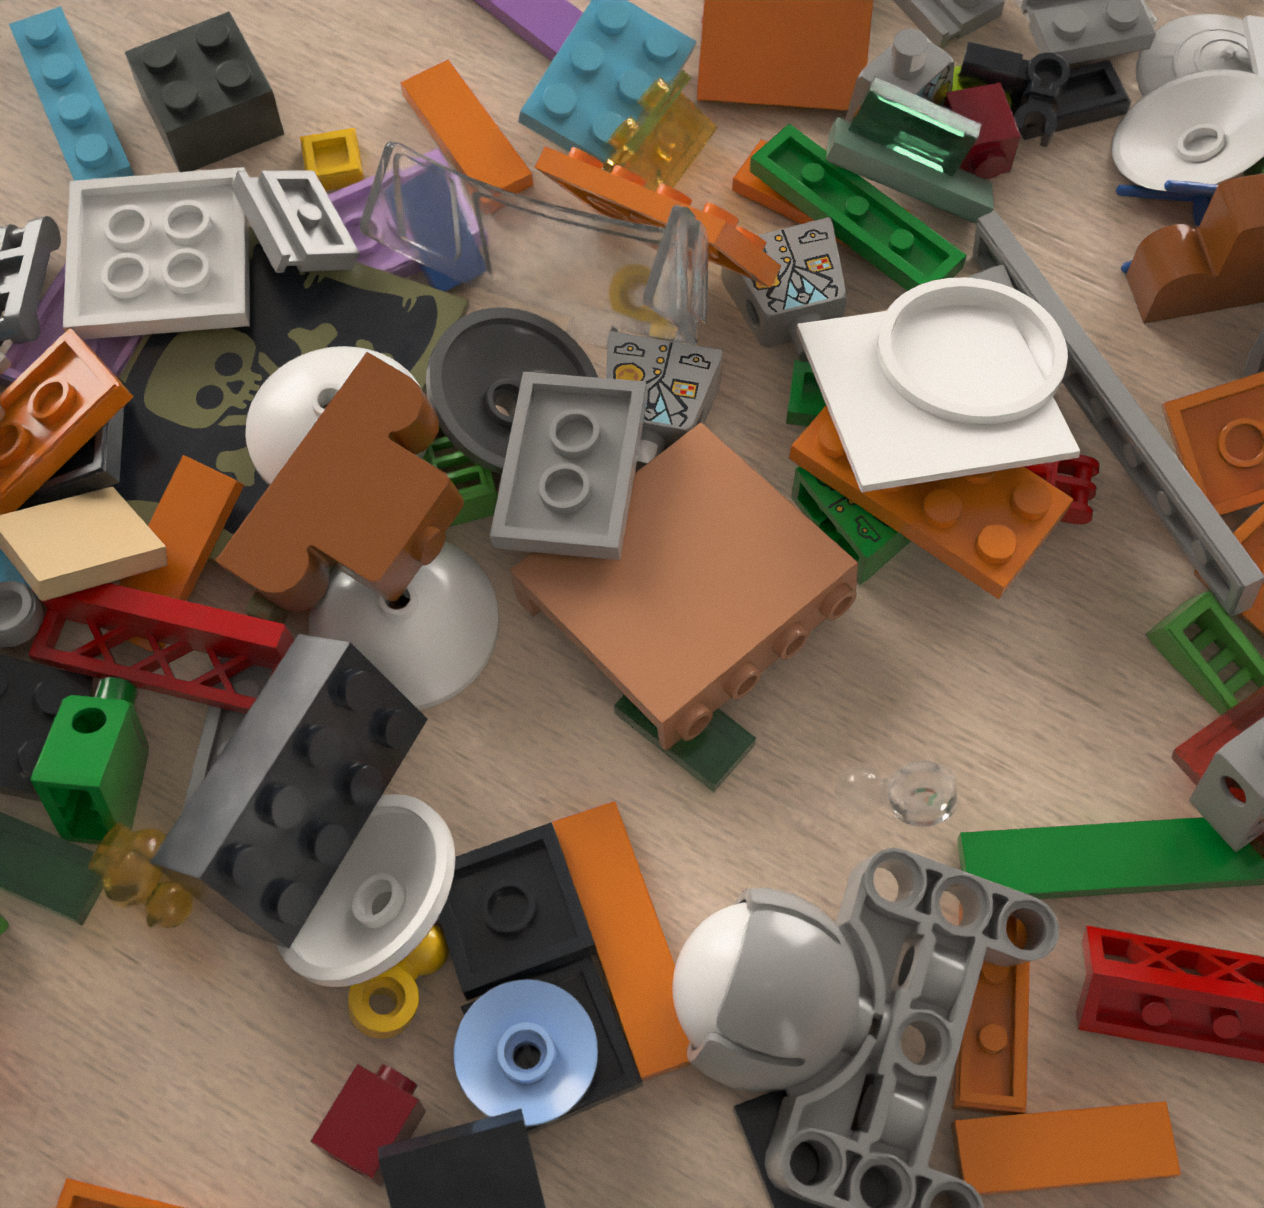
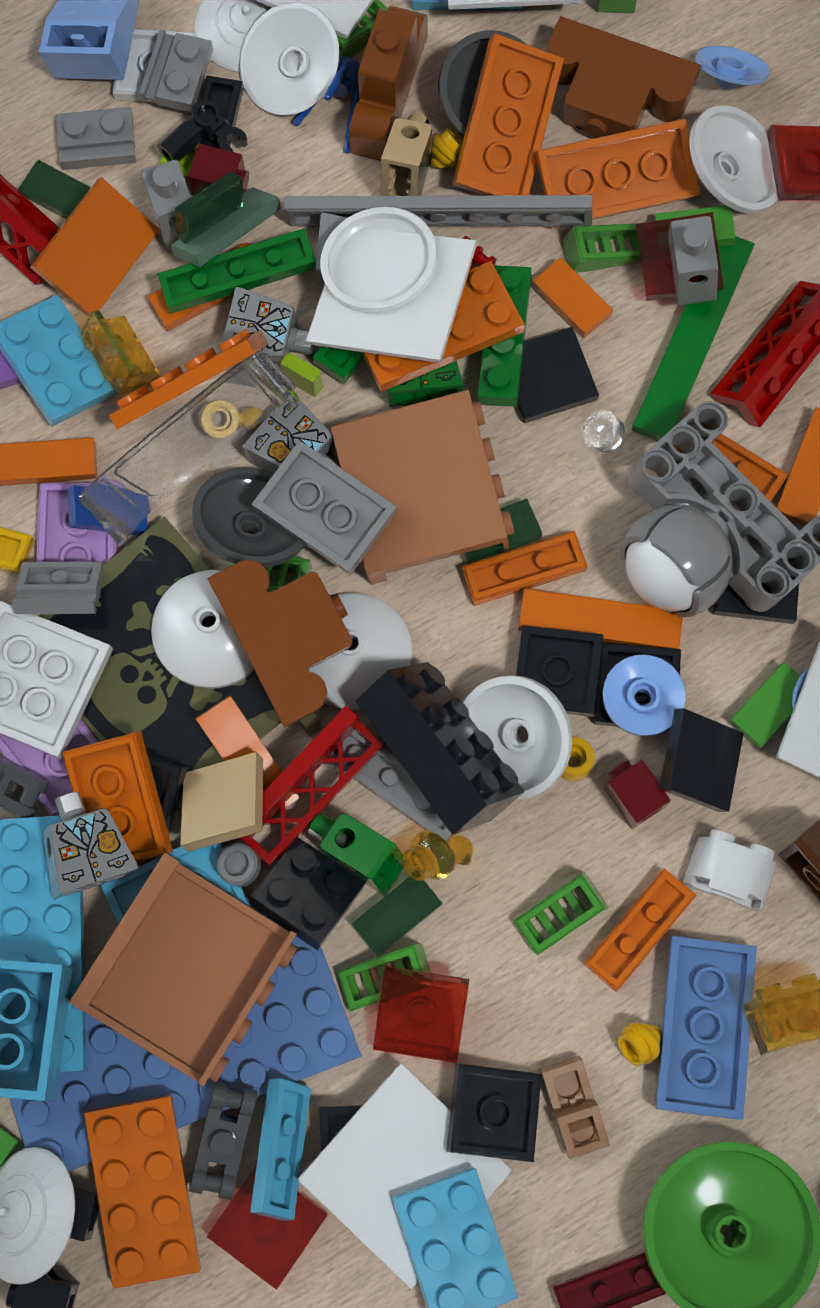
camera: 60 degrees left, 10 degrees up
(174, 1127) = (531, 934): none -> bright green slope
(651, 790) = (524, 568): none -> orange tile
(763, 361) = (302, 374): none -> lime tile
(943, 600) = (503, 361): none -> green plate
(967, 679) = (554, 376): none -> black tile
(1106, 653) = (572, 297): none -> orange tile
(1158, 328) = (408, 147): none -> tan torso
(1209, 371) = (445, 150): none -> yellow plate

